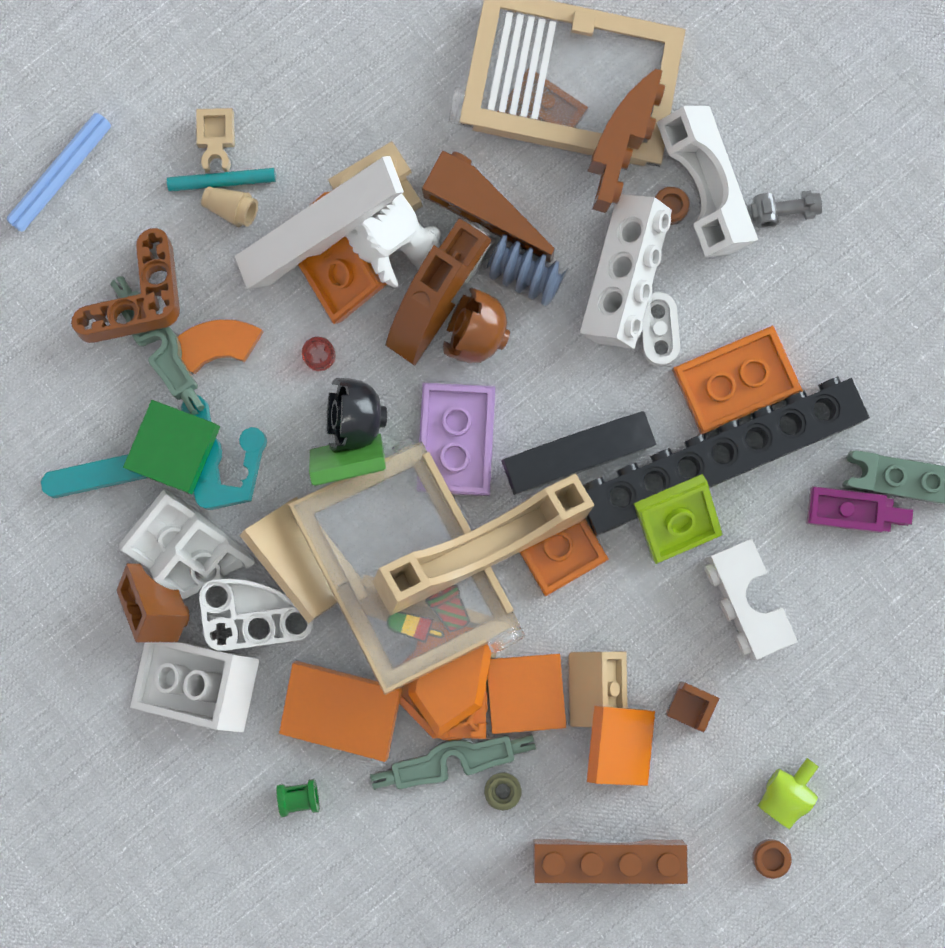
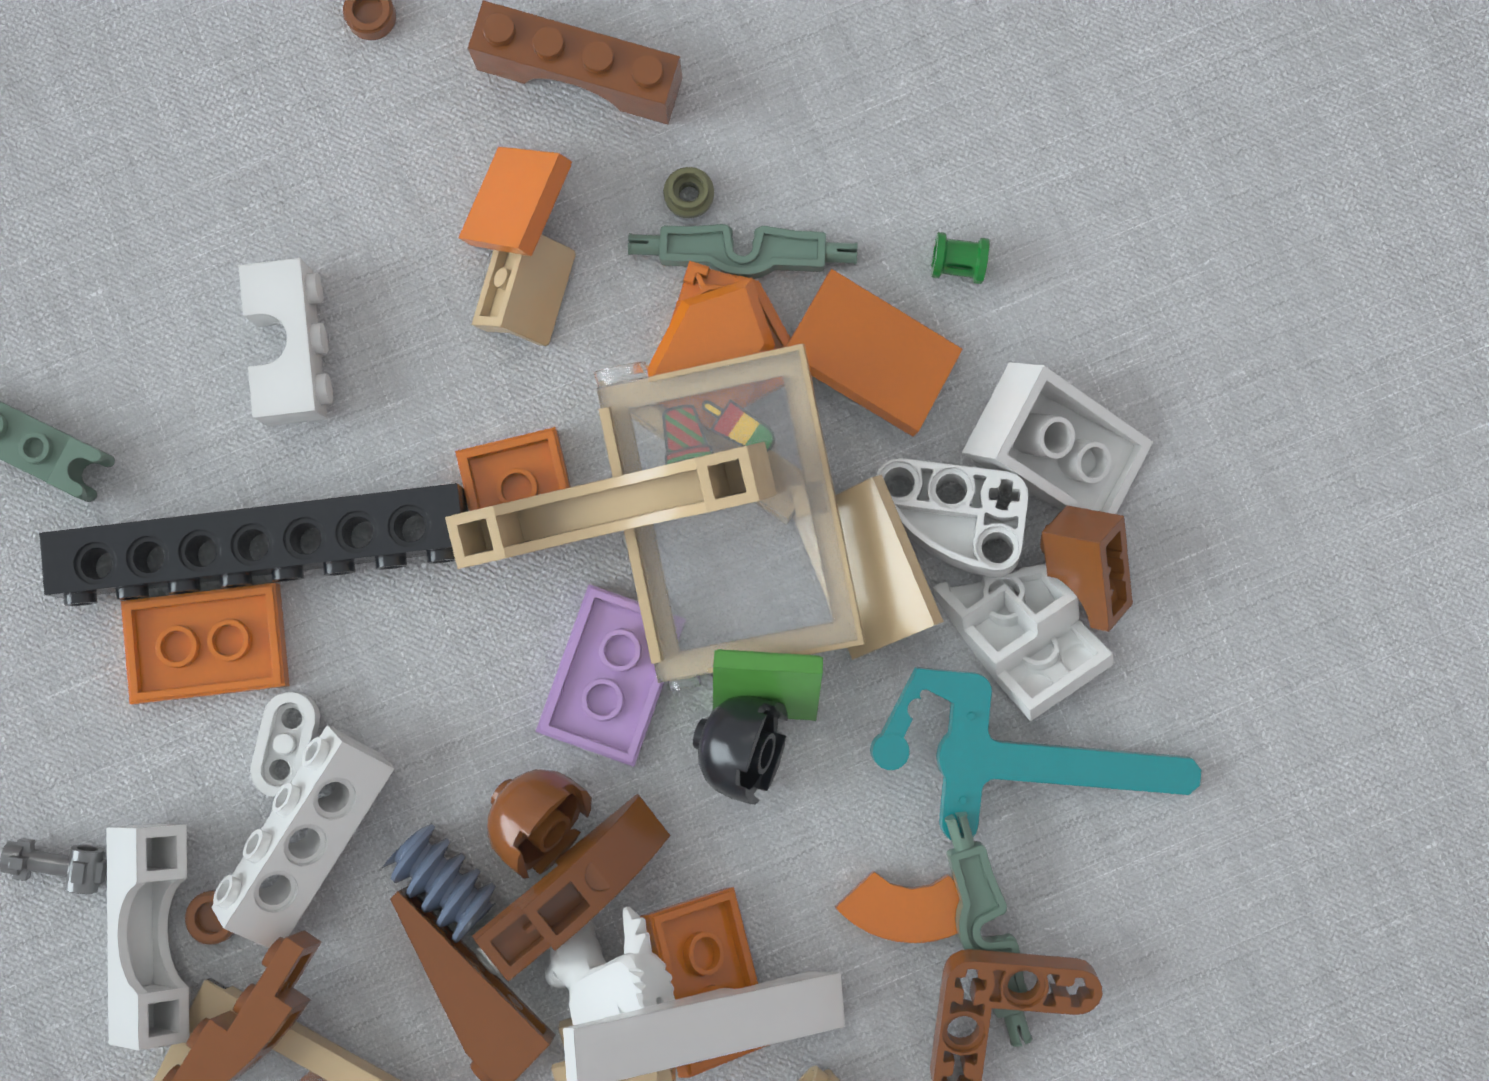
camera: 165 degrees left, 0 degrees up
(171, 447) = (1005, 774): green tile -> none
(308, 358) = (750, 851): clear red bush -> none
(526, 693) = (619, 307): orange tile -> none
(578, 452) = (449, 604): black slope -> none
(678, 518) = (342, 474): lime tile -> none
(692, 706) = (405, 226): dark orange panel -> none
(788, 796) = (321, 80): lime piece -> none
(855, 510) = (108, 420): magenta hinge -> none

